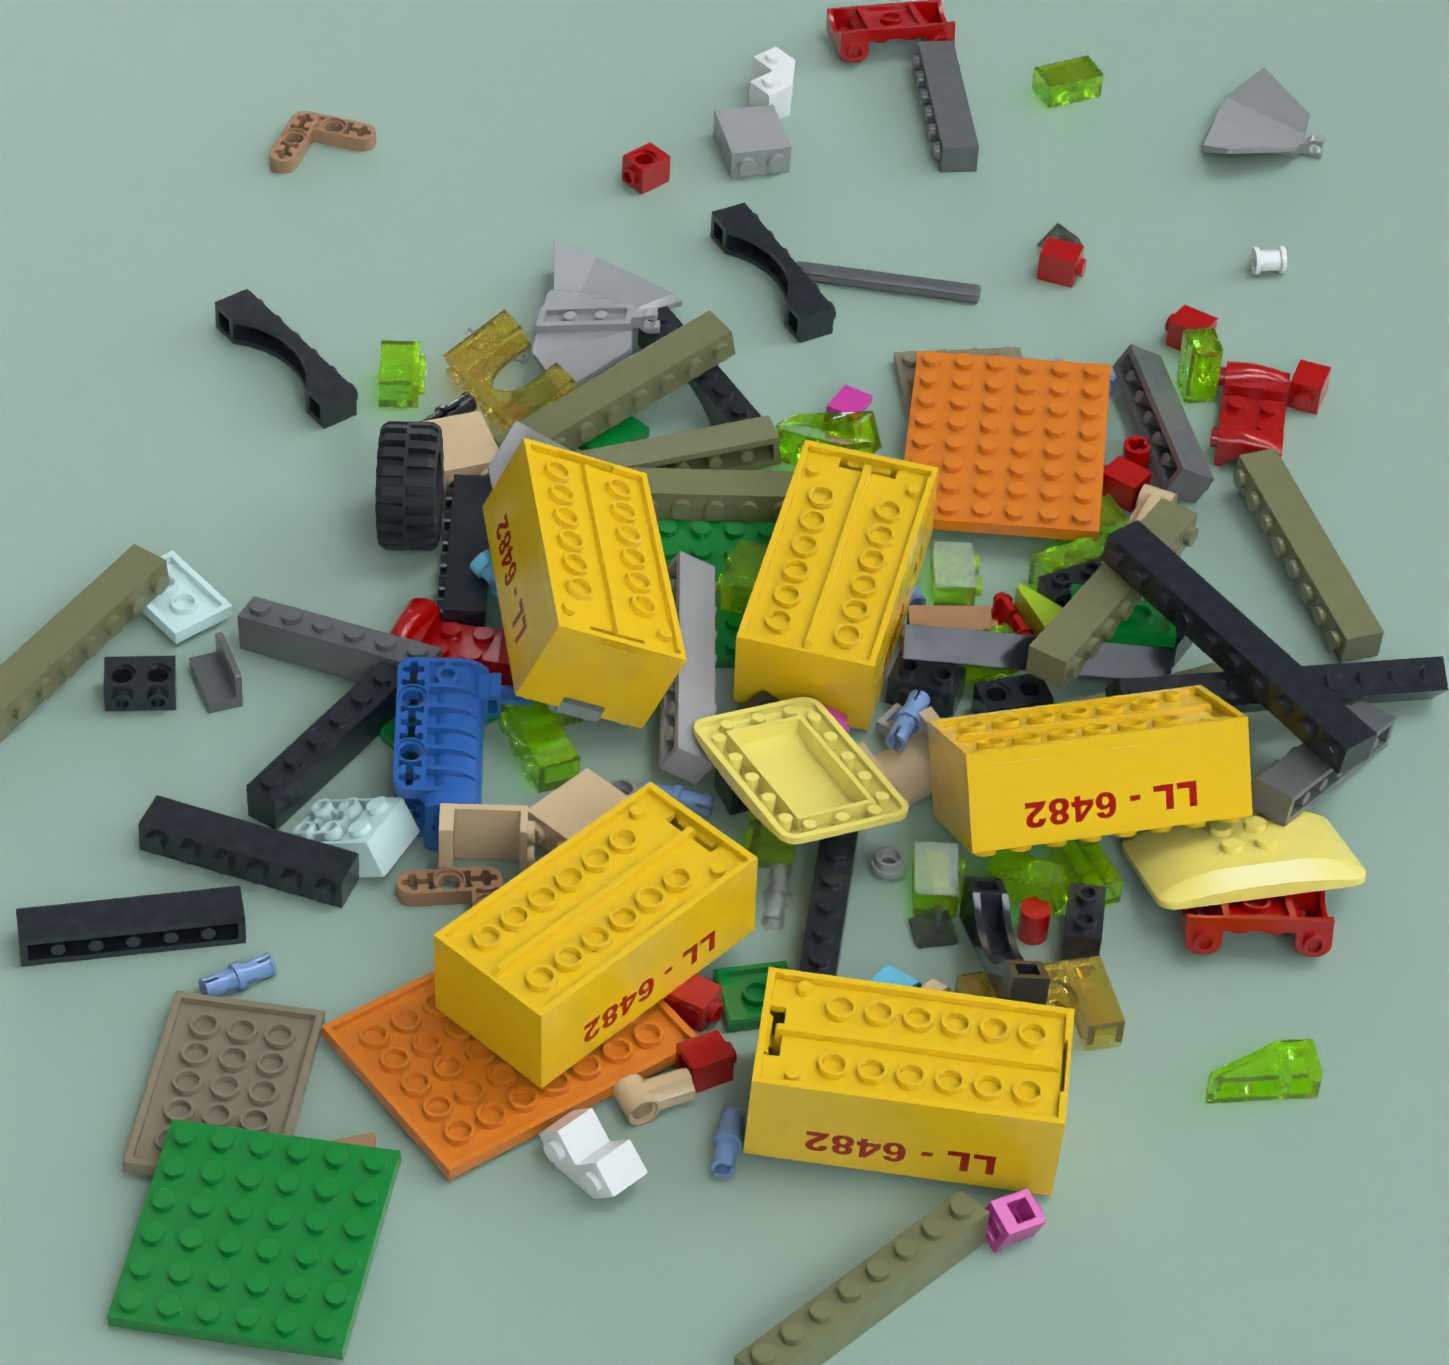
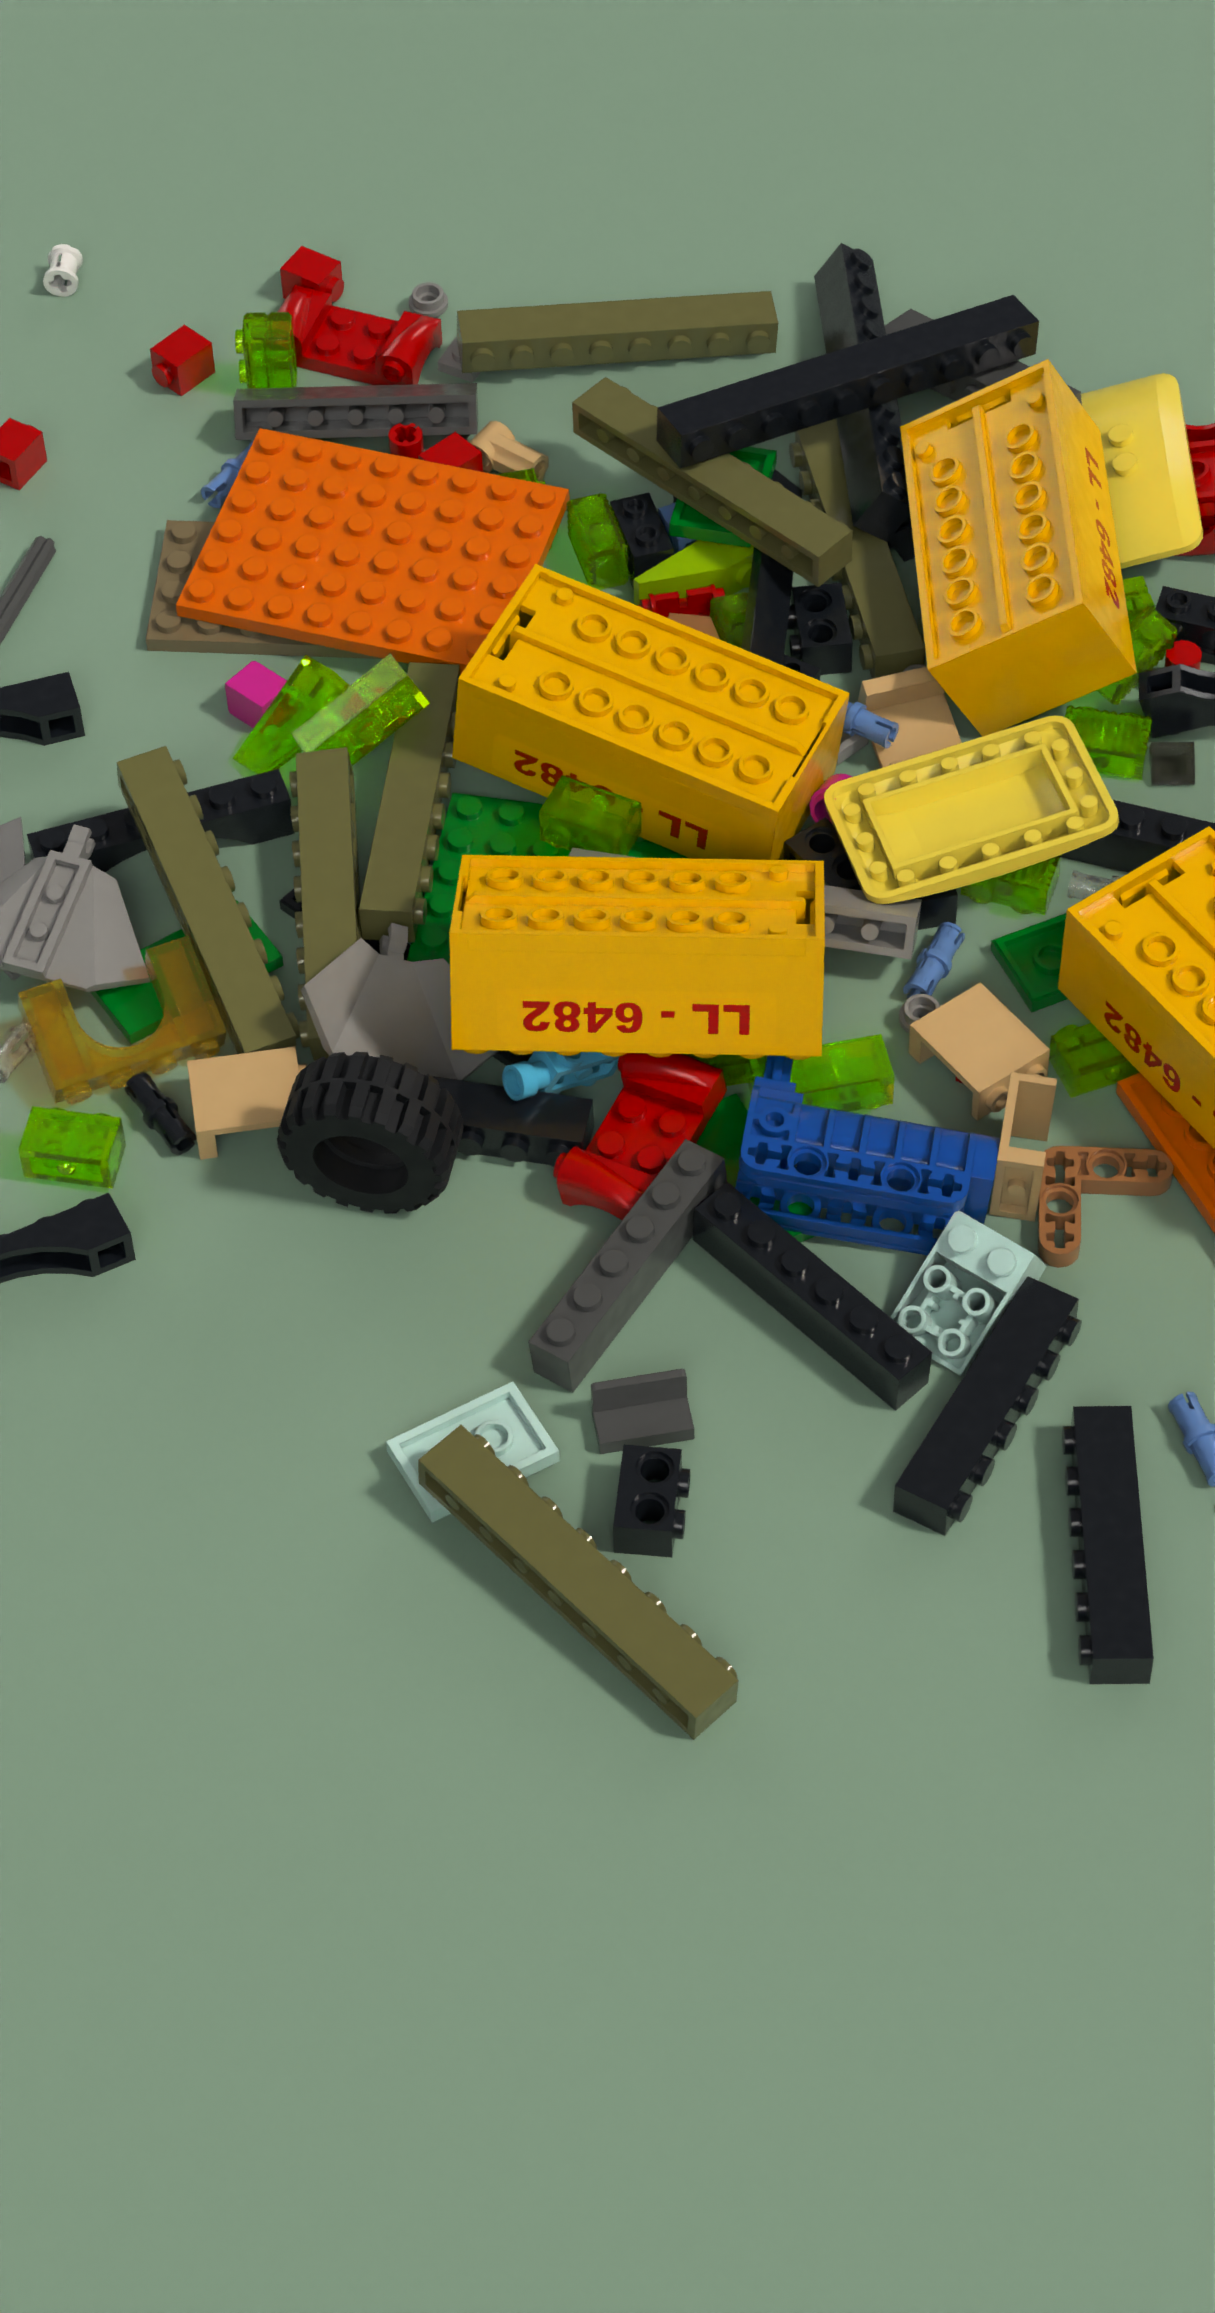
camera: 75 degrees left, 10 degrees up
(1314, 454) = (428, 300): none -> light grey plate

